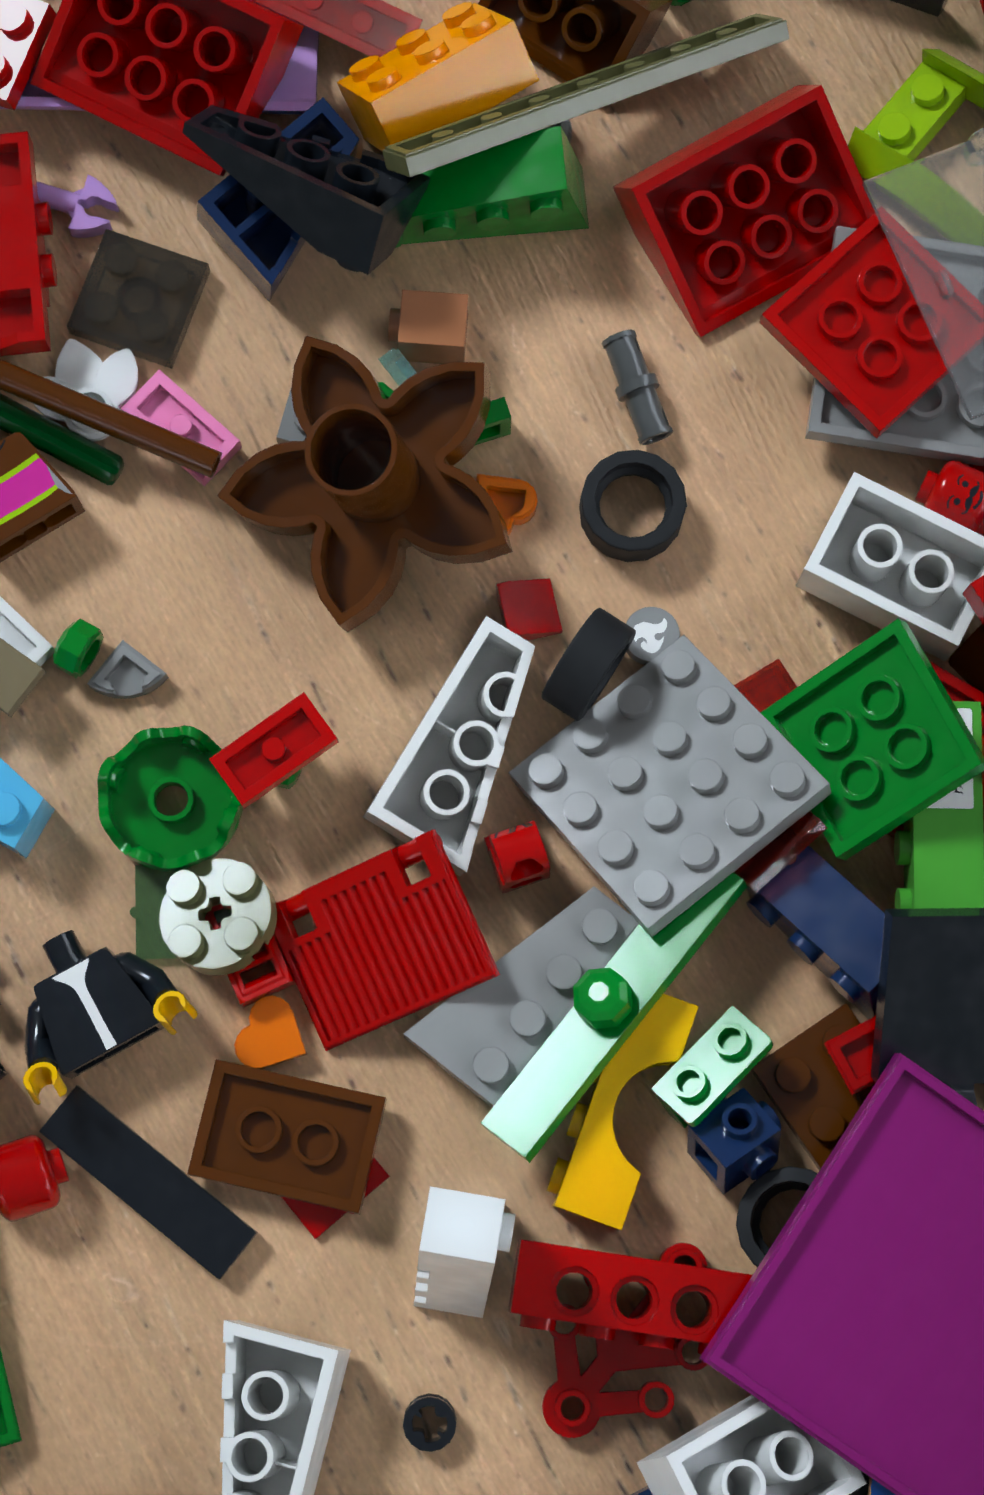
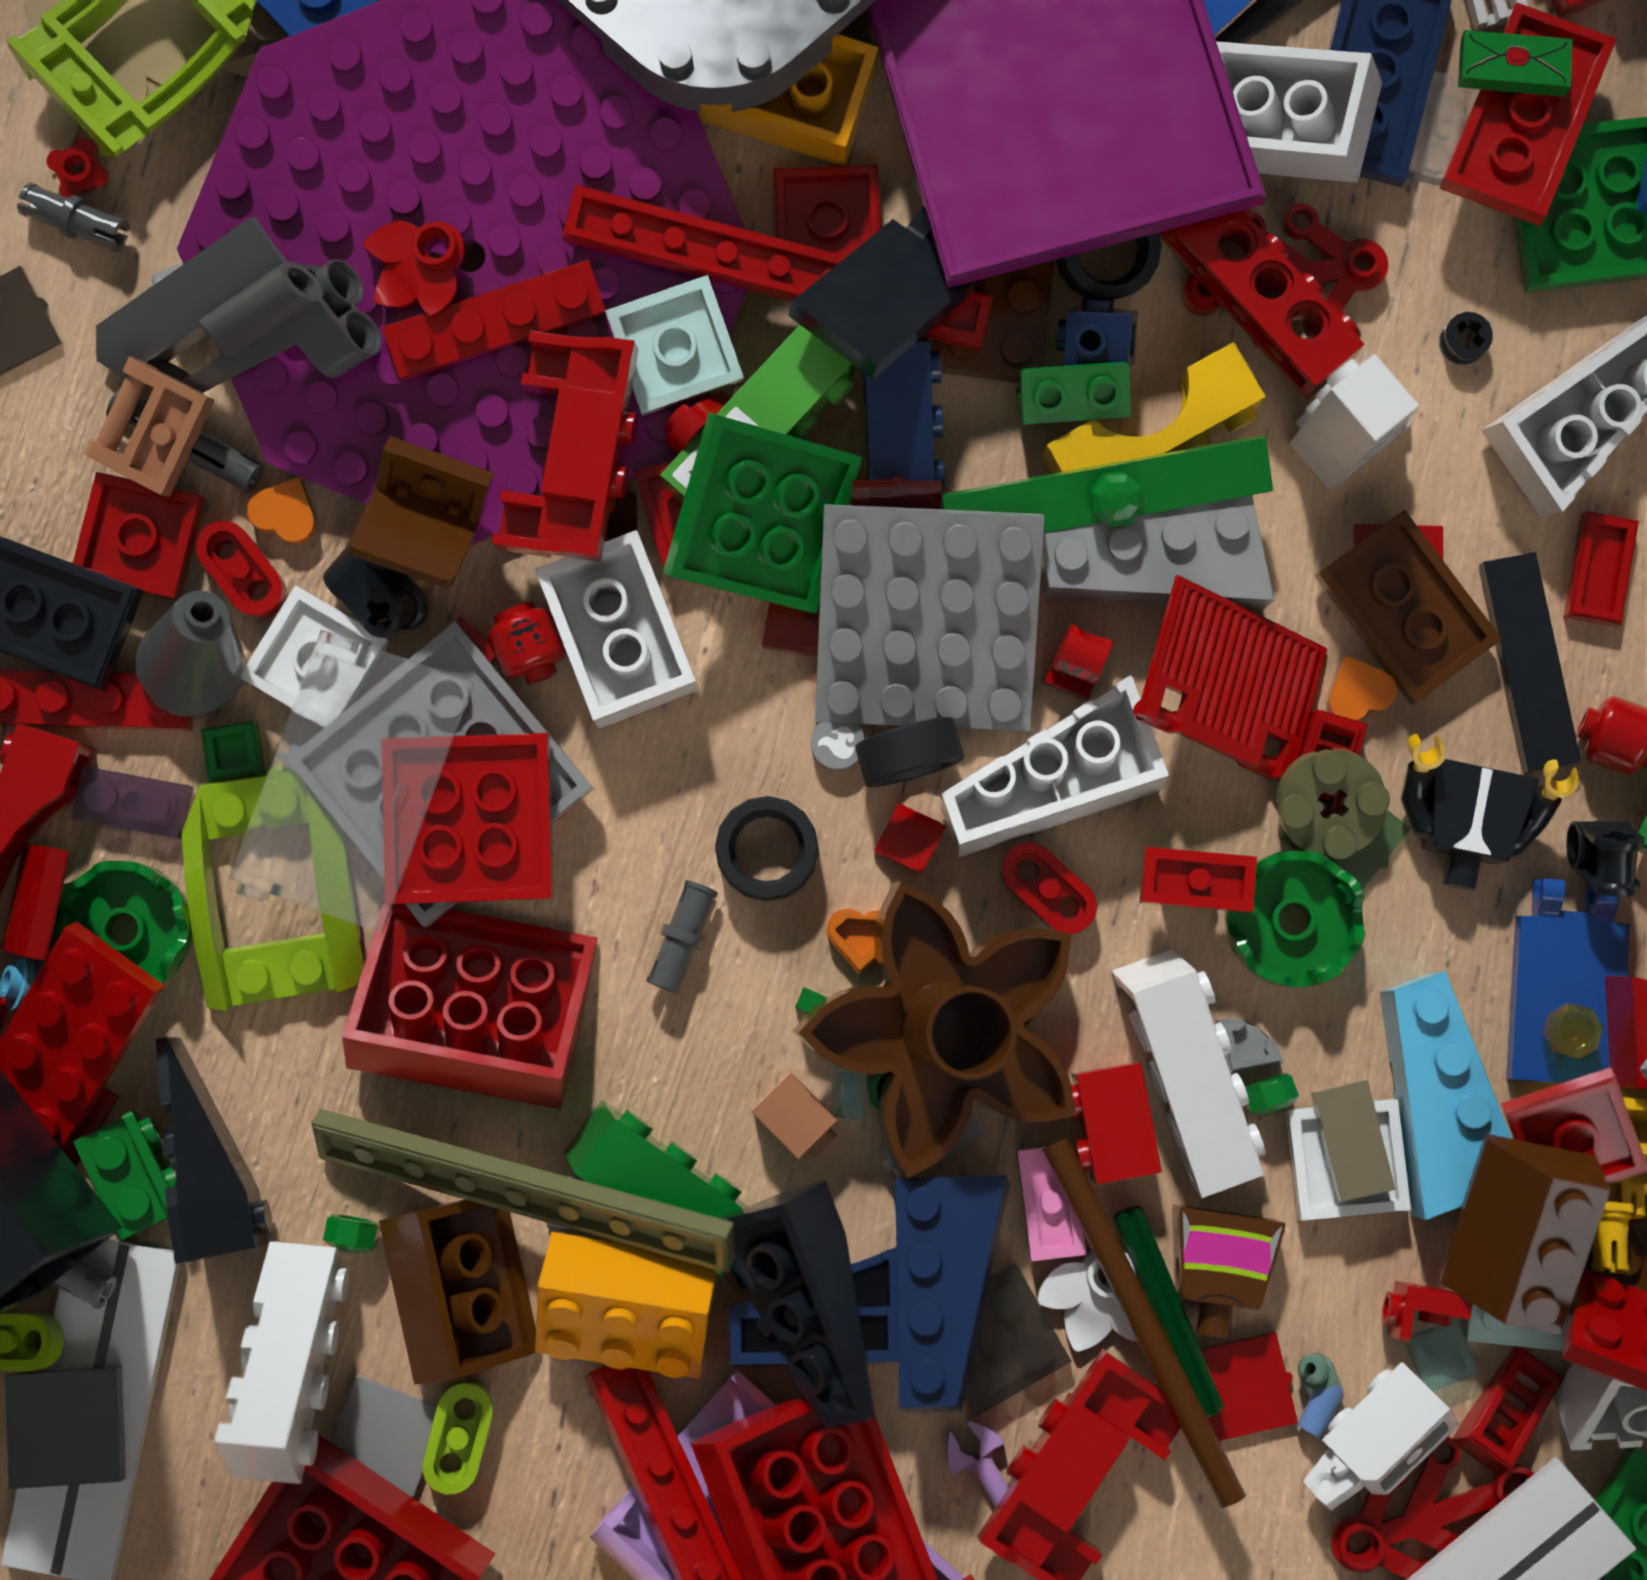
camera: 135 degrees left, 5 degrees up
(151, 1316) = (1601, 569): none -> red tile
(158, 609) = (1192, 1071): none -> white wedge
(182, 523) = (1114, 1123): none -> red brick
(213, 288) = (943, 1273): none -> dark blue wedge
(387, 659) = (1048, 888): none -> red plate

